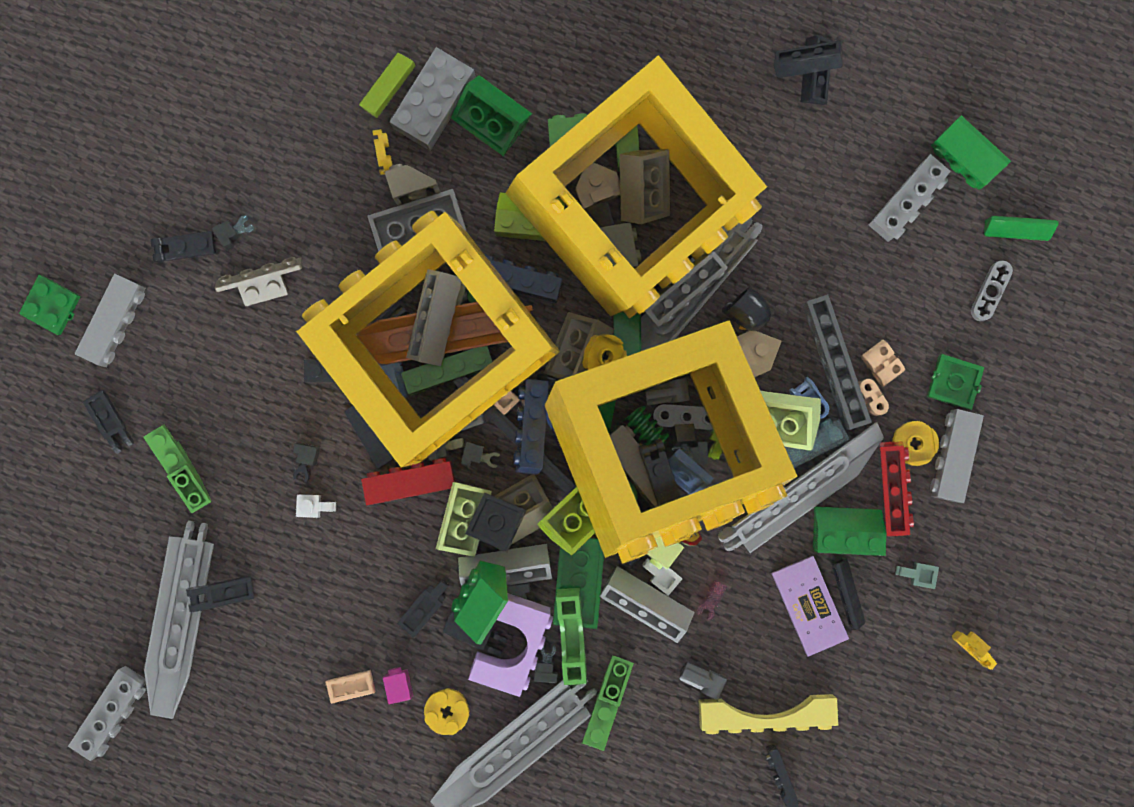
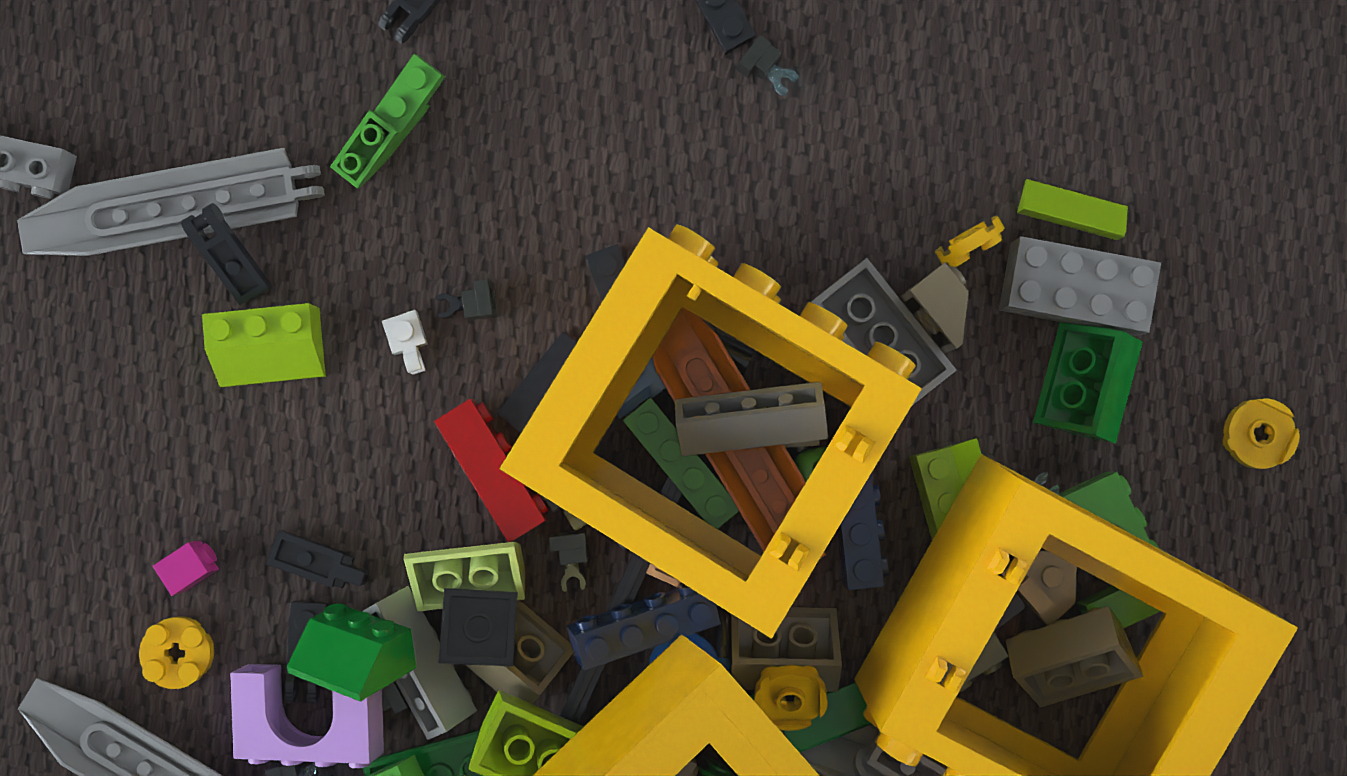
camera: 65 degrees right, 0 degrees up
(262, 283) = (706, 137): bracket -> none
(283, 591) = (264, 344): none -> lime slope
(350, 686) = (161, 496): light nougat plate -> none
(559, 15) = (1278, 424): none -> yellow plate

